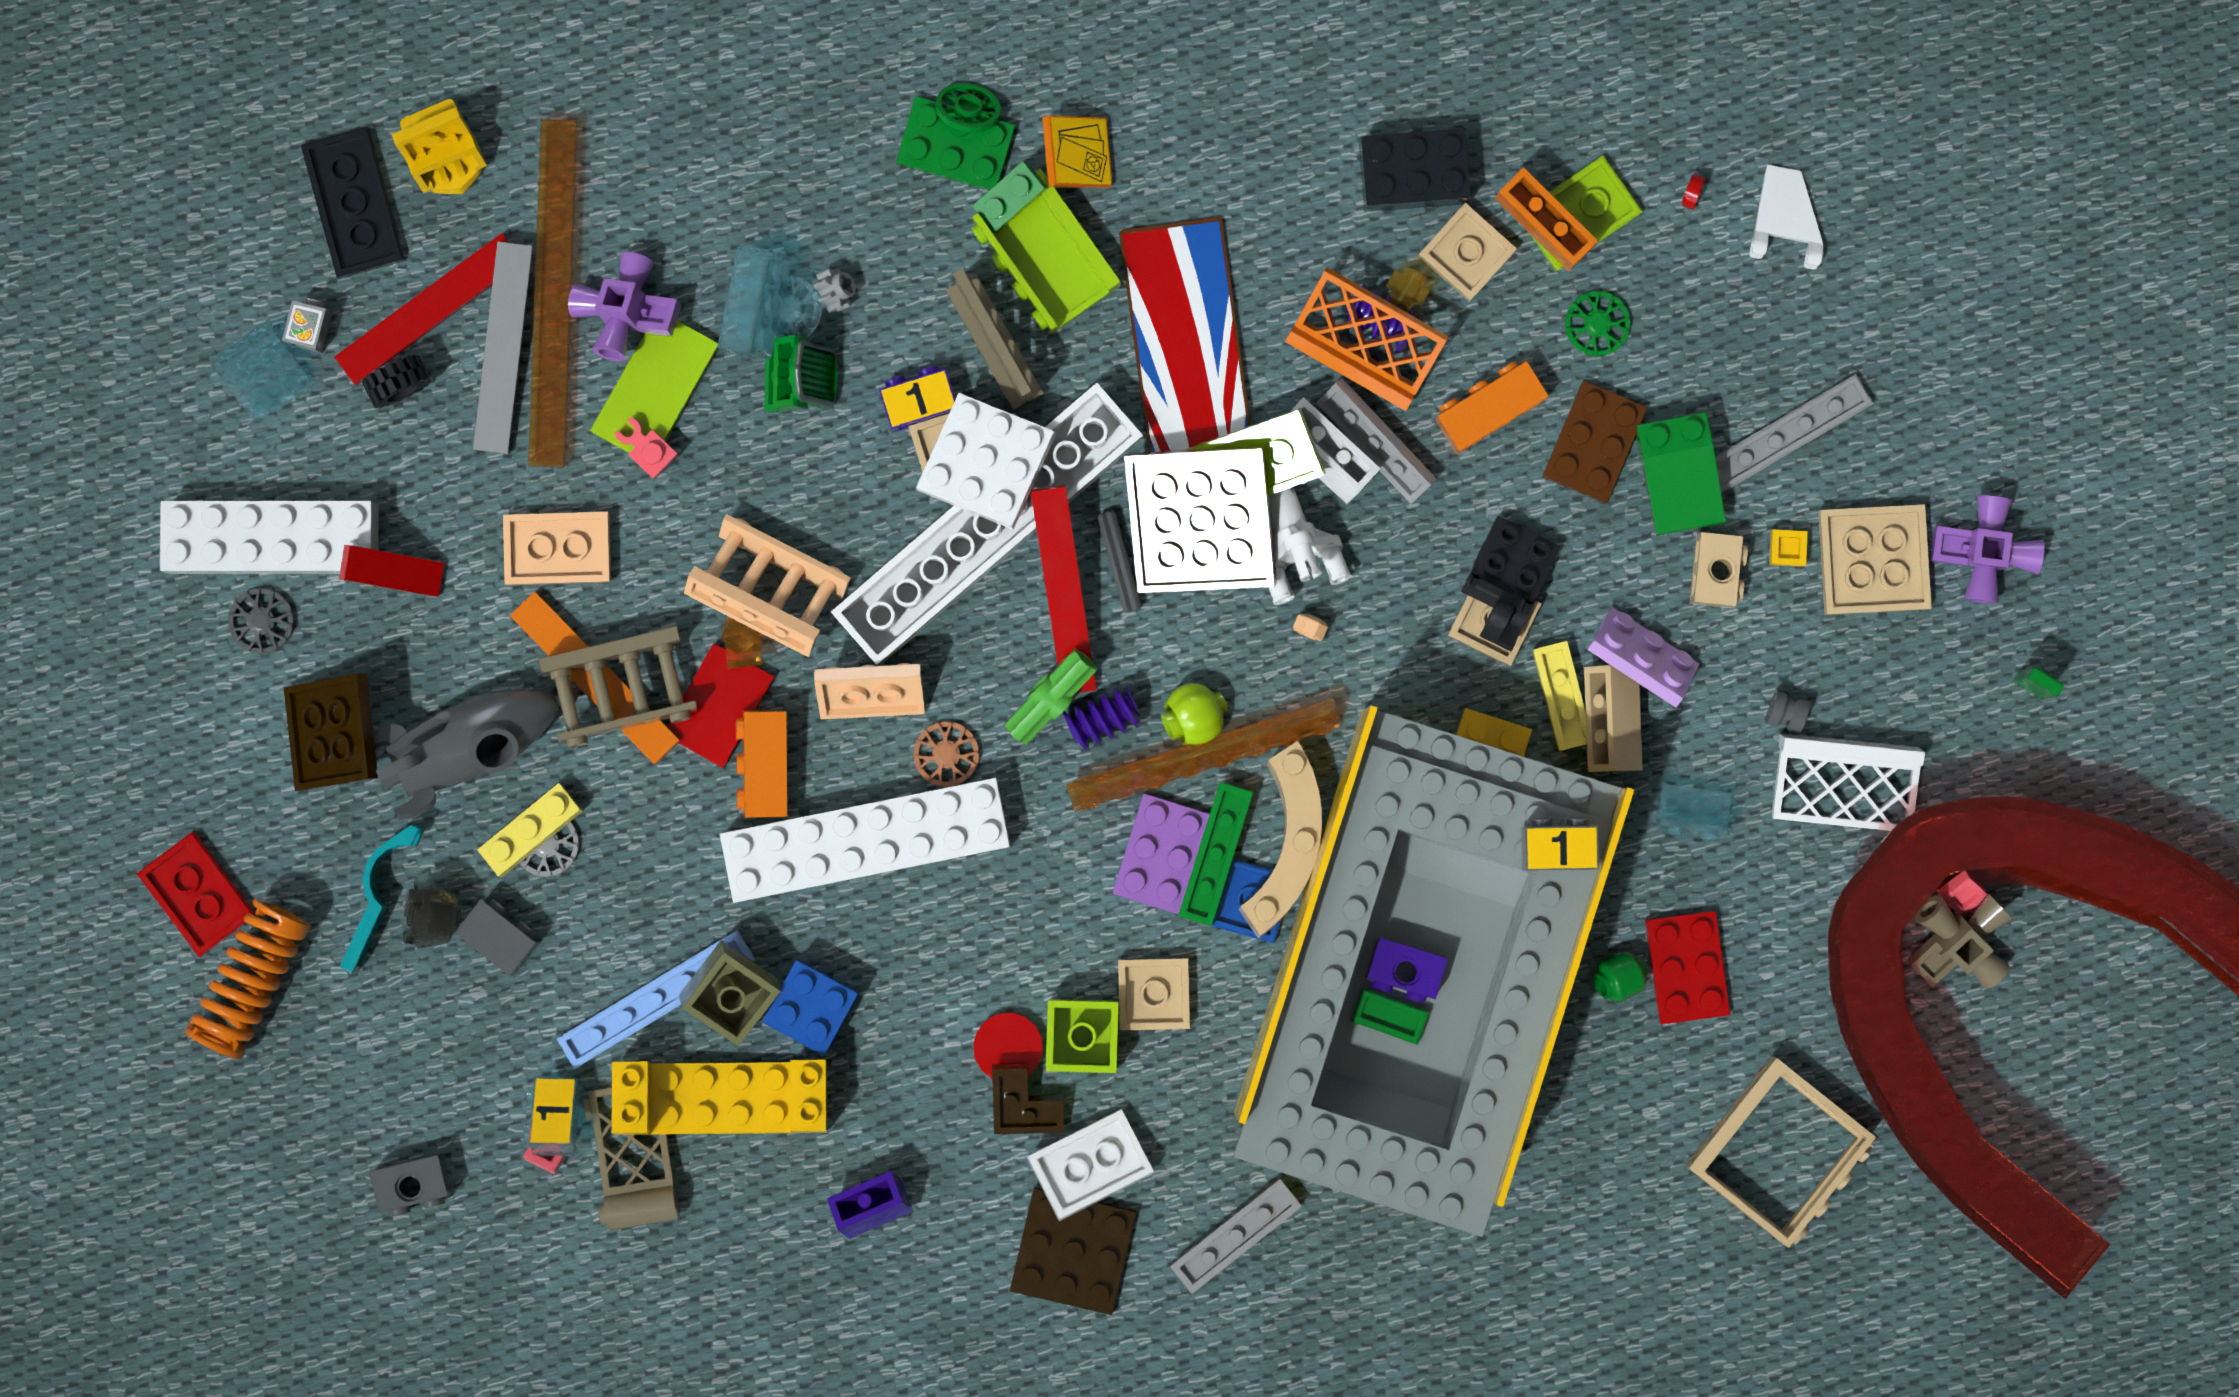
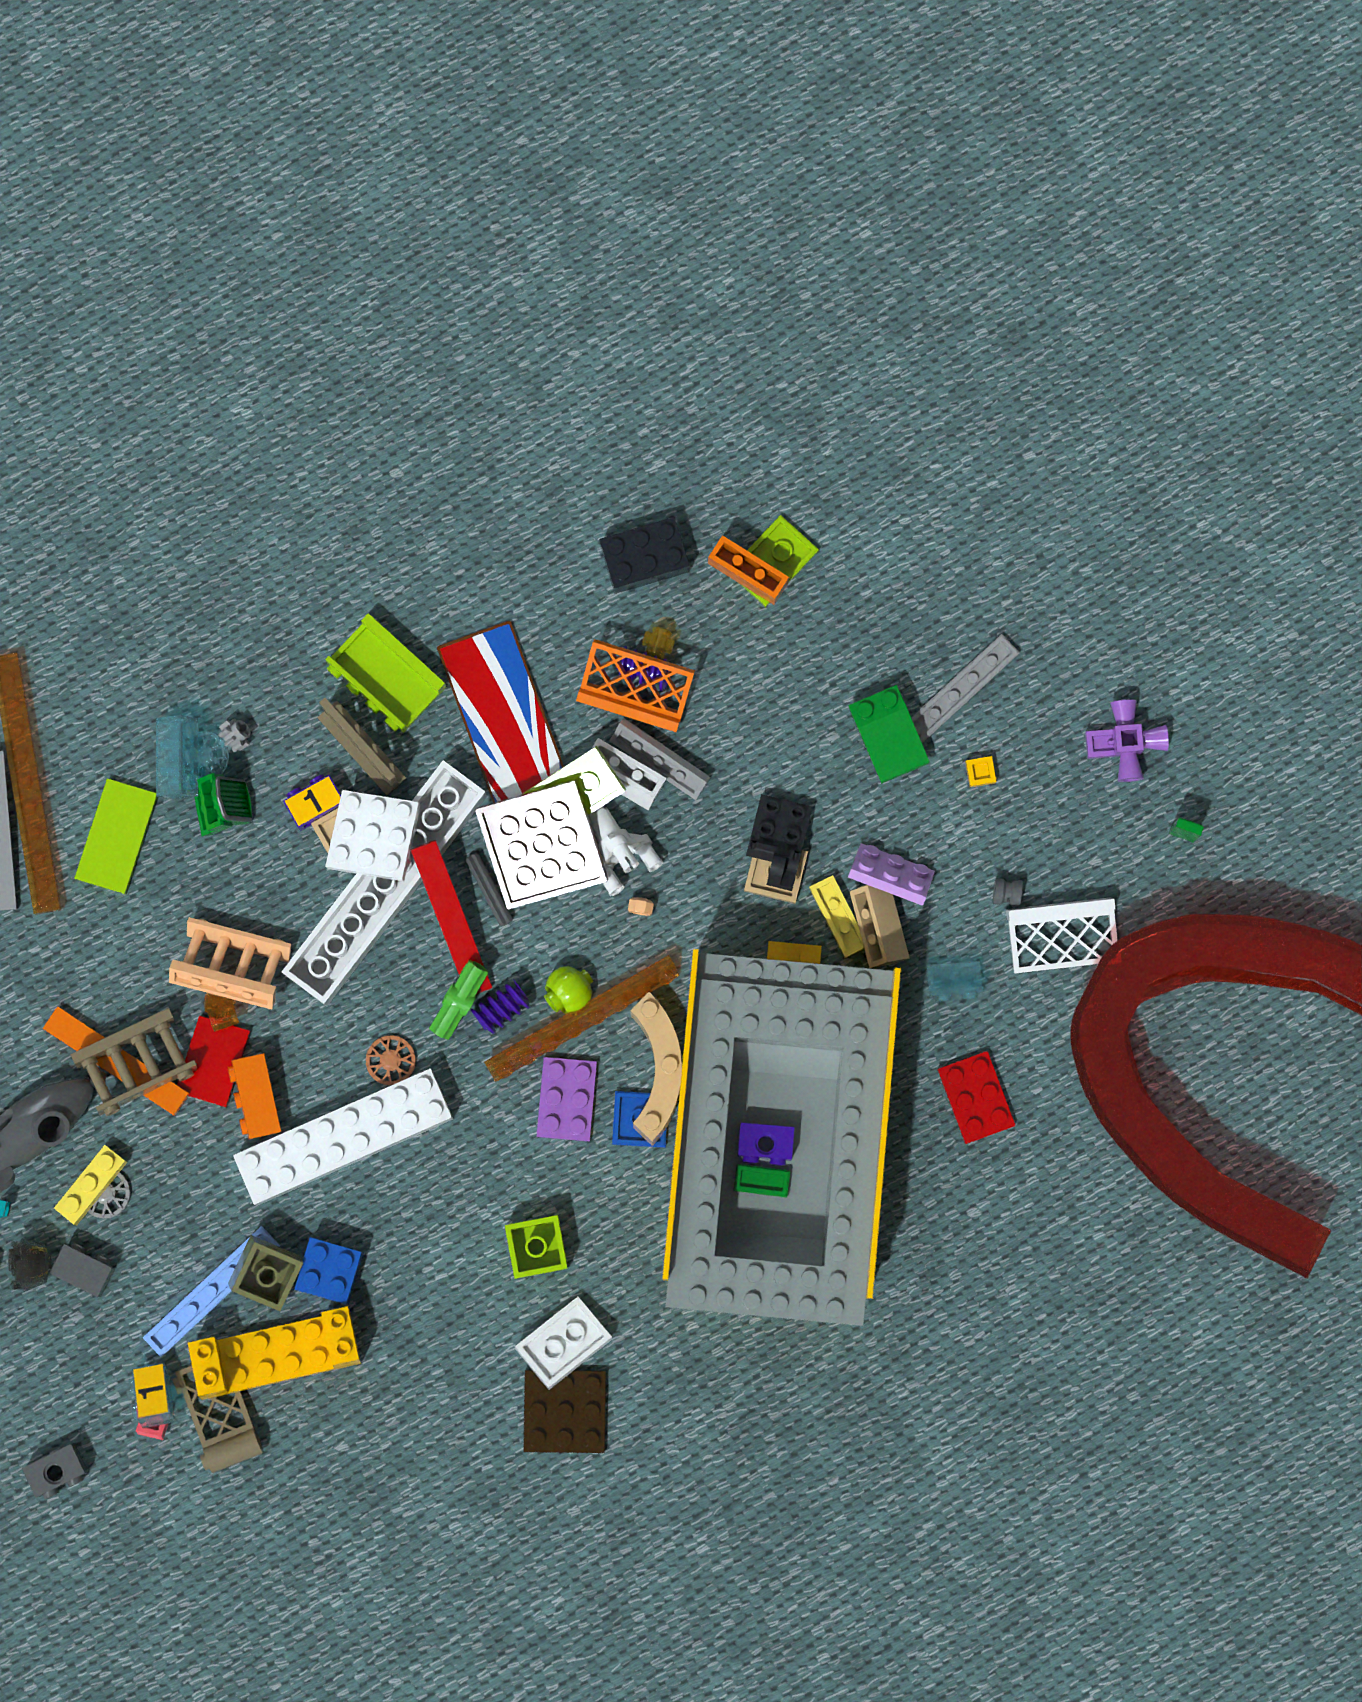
camera: 15 degrees left, 5 degrees down
(557, 548) = (67, 970): light nougat plate -> none
(624, 307) = (81, 781): medium lavender brick -> none
(650, 450) = (122, 883): coral plate -> none
(869, 691) = (323, 1025): light nougat plate -> none
(869, 1205) = (404, 1409): dark purple brick -> none
(951, 153) = (302, 609): green plate -> none
(968, 107) = (305, 580): green wheel -> none
(1007, 1040) = (483, 1269): red tile -> none
(1010, 196) = (350, 638): plate -> none
(1016, 1111) = (500, 1314): dark brown plate -> none
(1077, 152) = (393, 595): yellow tile -> none
(1153, 994) = (583, 1204): tan plate -> none
(1215, 854) = (606, 1090): green plate -> none
(1235, 1236) = (684, 1372): light grey plate -> none
(1467, 252) = (696, 607): tan plate -> none
(1490, 406) = (738, 715): orange brick -> none
(1560, 846) = (855, 1022): yellow brick -> none
(1594, 442) = (820, 725): reddish brown plate -> none
(1597, 323) = (804, 638): green wheel -> none
(1620, 976) = (927, 1115): green head -> none
(1693, 191) = (852, 527): red tile -> none
(1705, 587) = (928, 814): tan brick -> none
(1786, 214) = (924, 529): white flag -> none
(1835, 1178) = (1121, 1229): tan window -> none
(1874, 559) = (1046, 766): tan plate -> none
(1960, 942) = (1172, 1033): dark tan brick -> none
(1963, 893) = (1169, 998): coral plate -> none

